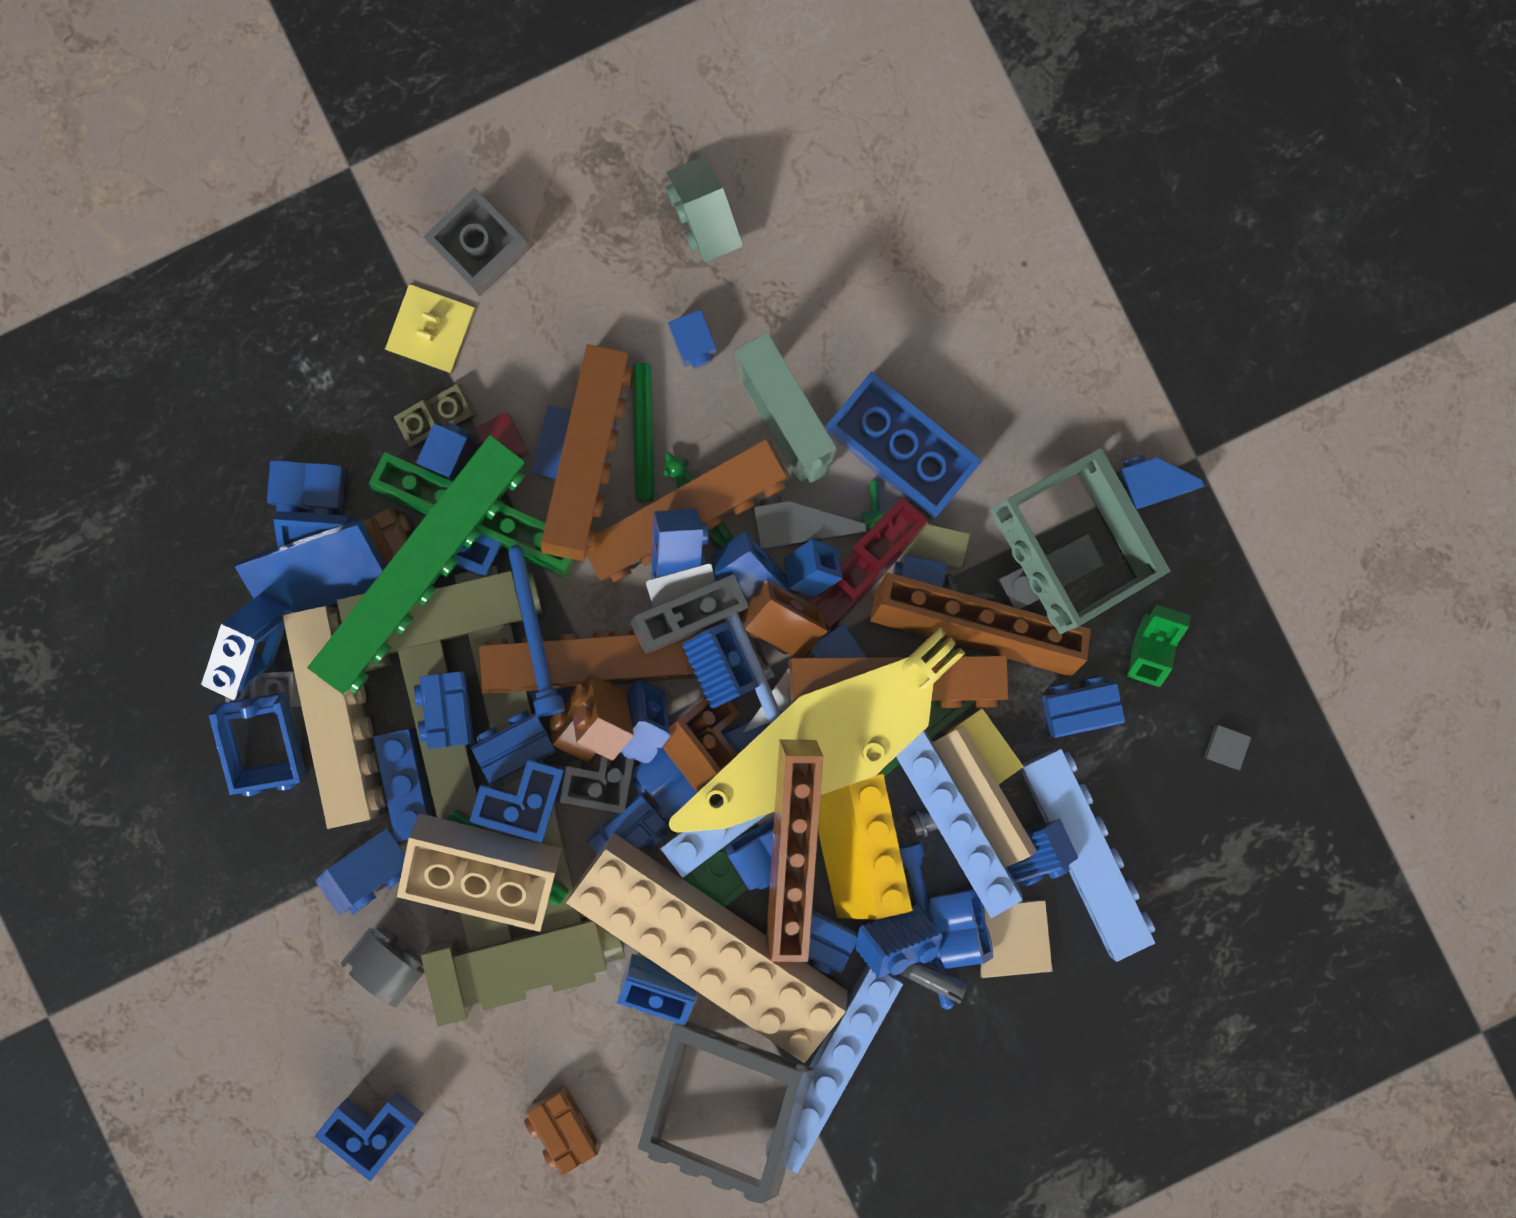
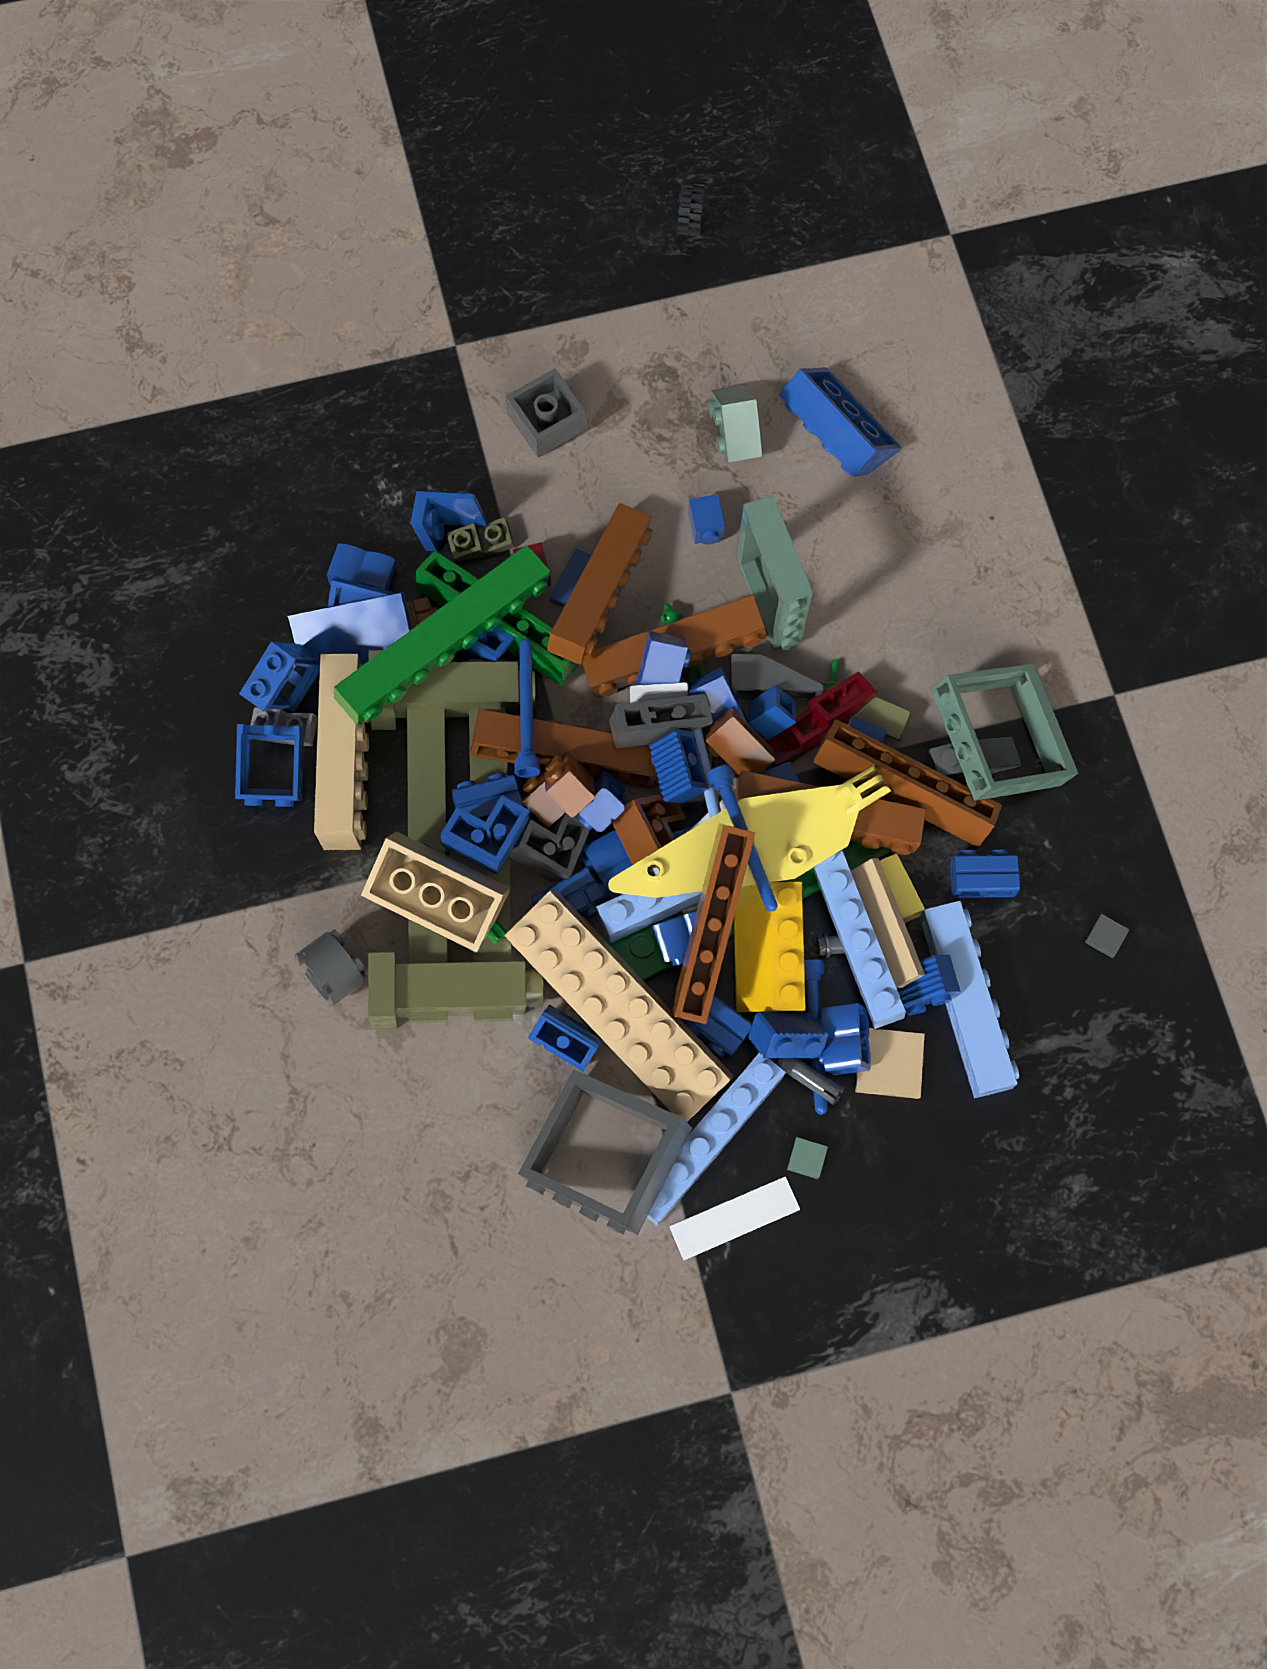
camera: 10 degrees right, 15 degrees down
(354, 878) = (327, 883): blue brick -> none
(367, 404) = (436, 509): none -> blue bracket
(368, 1141) = (282, 1120): blue brick -> none
(403, 780) = (385, 811): blue brick -> none
(430, 328) = (491, 475): light yellow piece -> none
(445, 710) = (437, 759): blue brick -> none
(447, 450) = (484, 555): blue brick -> none
(562, 1131) = (453, 1148): dark orange brick -> none
(643, 432) = (650, 582): green axle -> none
(774, 684) = (722, 780): none -> blue piece
(825, 178) = (838, 421): none -> blue slope
(876, 1136) = (734, 1218): none -> white sticker
(902, 445) = (866, 631): blue brick -> none
(942, 1060) = (807, 1158): none -> sand green tile
(1155, 481) = (1078, 702): blue slope -> none
(1155, 645) = (1058, 831): green brick -> none

